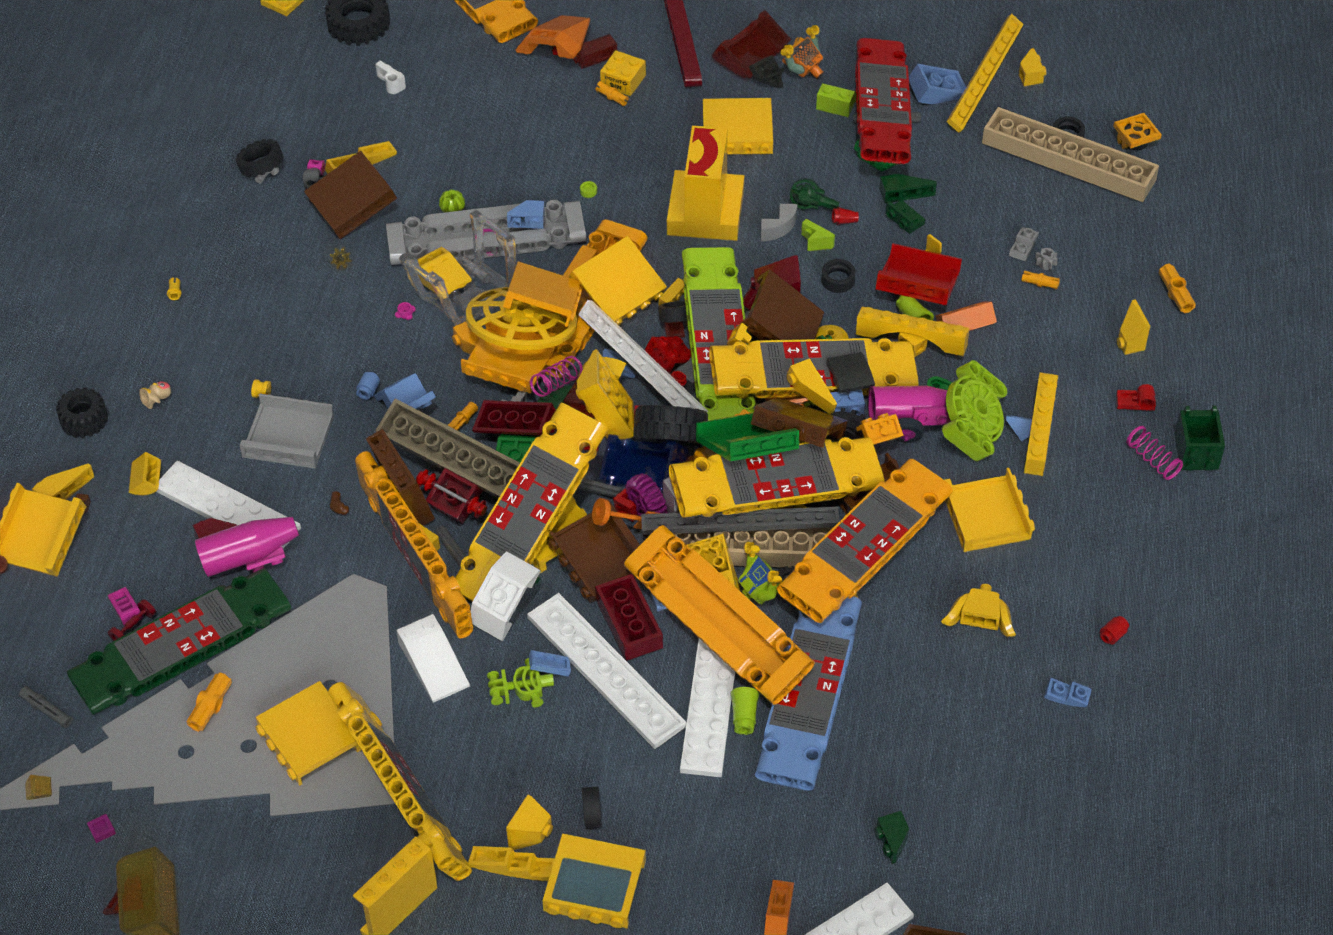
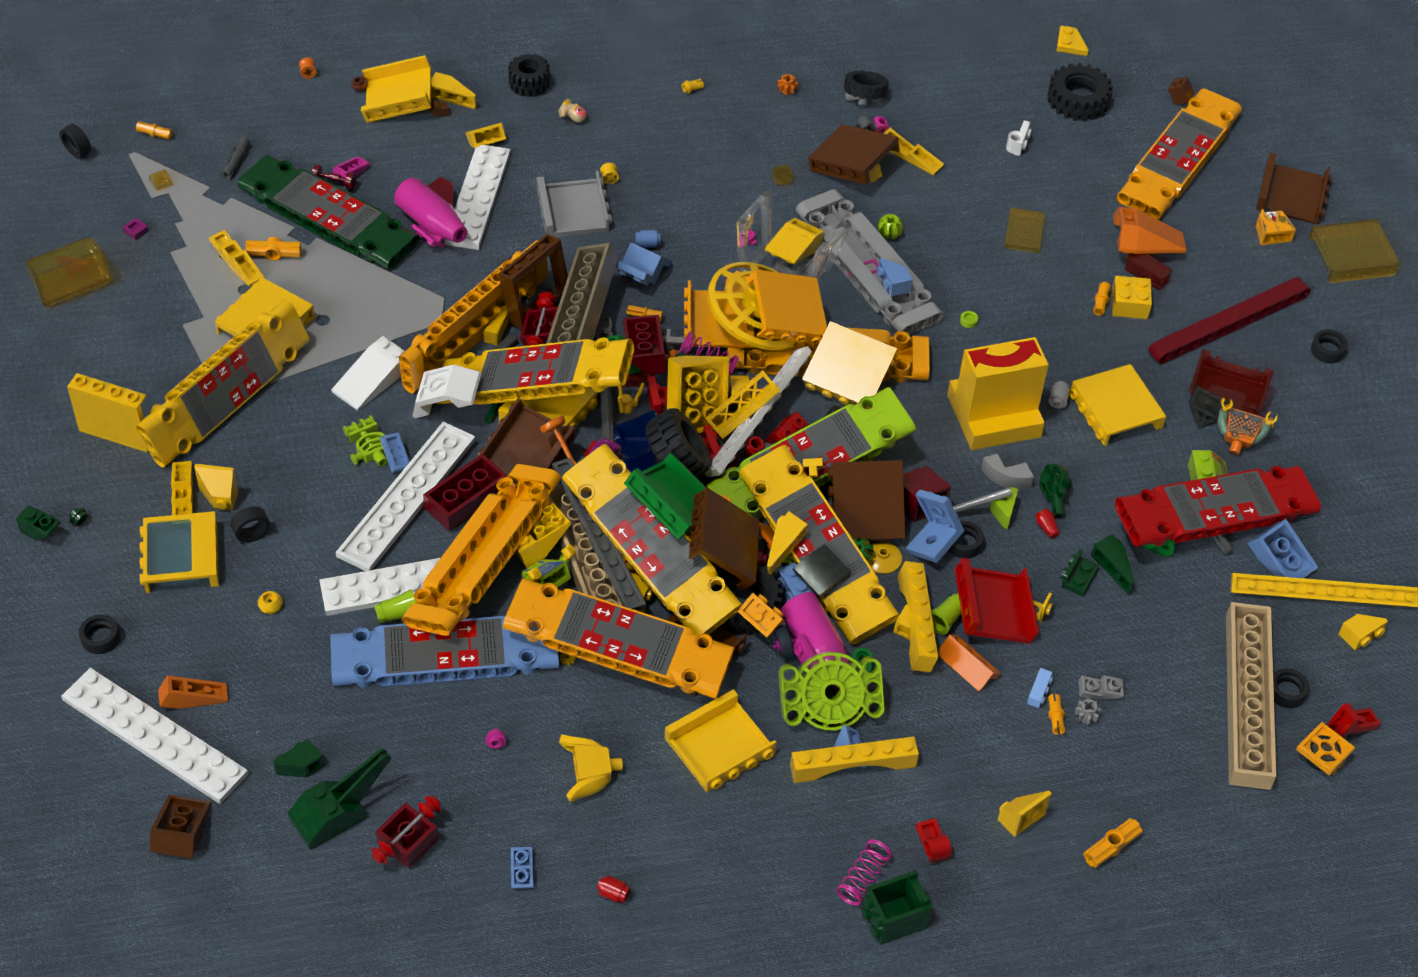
camera: 65 degrees right, 0 degrees up
(201, 741) = (236, 258): none -> yellow slope
(219, 216) = (787, 84): none -> orange gear
(502, 115) = (1024, 230): none -> clear yellow tile
(635, 369) = (746, 410): none -> yellow fence
(689, 824) = (267, 606): none -> yellow plate
(807, 251) = (982, 500): none -> light grey bar
(826, 278) = (942, 527): none -> medium blue bracket
(924, 673) = (495, 739): none -> dark pink plate
(959, 820) = (335, 805): none -> dark green slope
(1010, 281) = (1040, 688): none -> light blue piece
(1010, 764) = (407, 833): none -> dark red brick
(1118, 106) = (1352, 721): none -> red bracket

